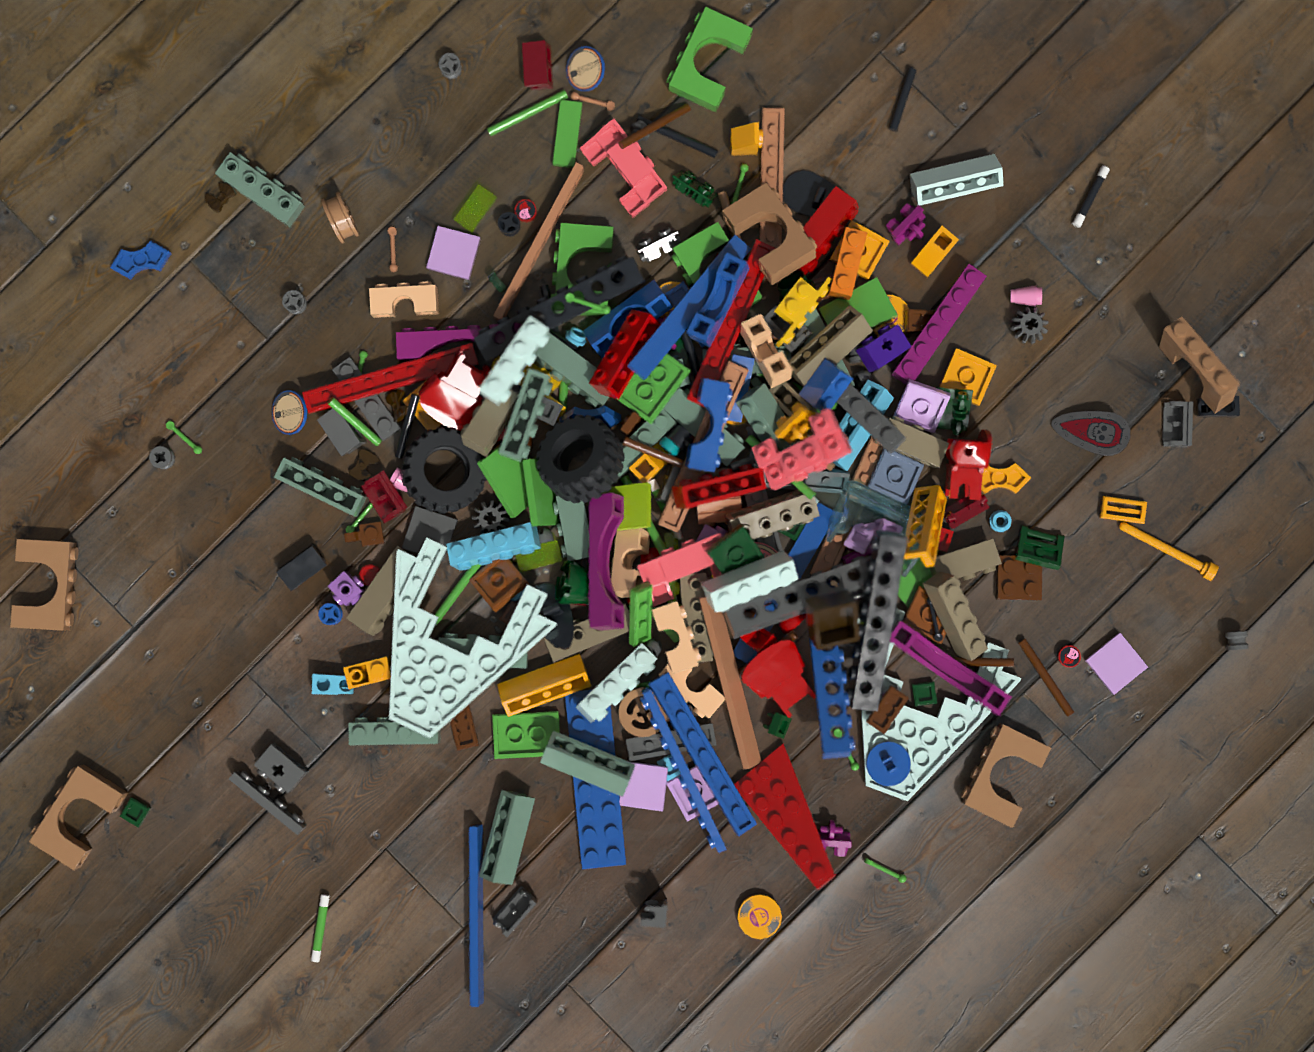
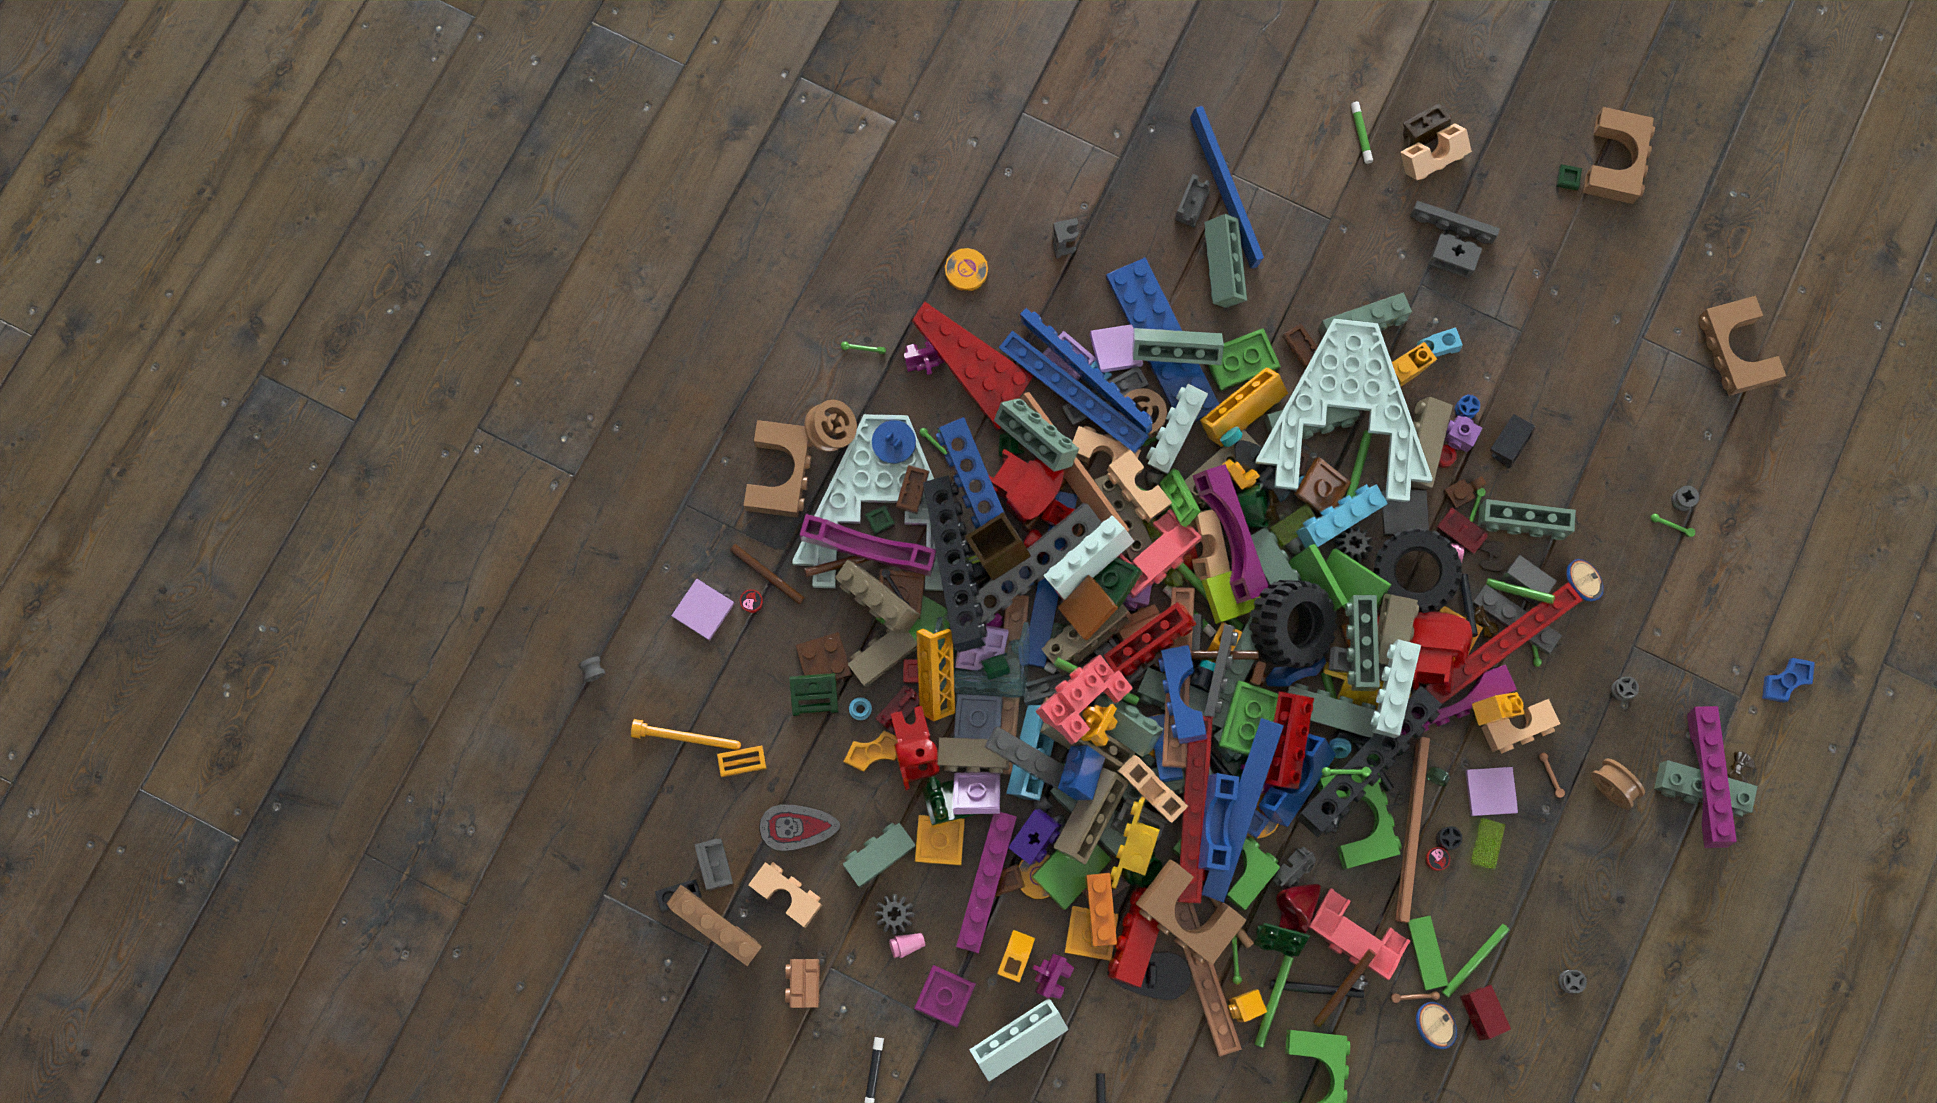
camera: 160 degrees right, 10 degrees down
(239, 880) = (1452, 146): none -> light nougat arch
(255, 911) = (1424, 126): none -> dark brown hinge
(257, 175) = (1717, 812): none -> magenta arch
(422, 318) = (1498, 708): none -> light orange slope
(550, 583) = (1274, 501): none -> dark brown piece
(569, 656) = (1231, 437): none -> teal tile
(578, 617) = (1236, 473): none -> light orange bracket
(660, 442) = (1223, 661): none -> dark grey plate
(668, 208) = (1298, 906): none -> dark red hat
(718, 139) = (1273, 1001): none -> bright green bar
(754, 721) = (1036, 434): none -> sand green brick
(767, 535) = (1087, 607): none -> dark orange tile
(867, 513) = (995, 667): none -> dark green tile
(931, 794) = (821, 427): none -> medium nougat wheel
(1006, 241) = (944, 996): none -> magenta tile
(1026, 382) = (878, 854): none -> sand green brick
(1128, 392) = (803, 905): none -> light nougat arch
(1129, 292) = (803, 983): none -> nougat brick

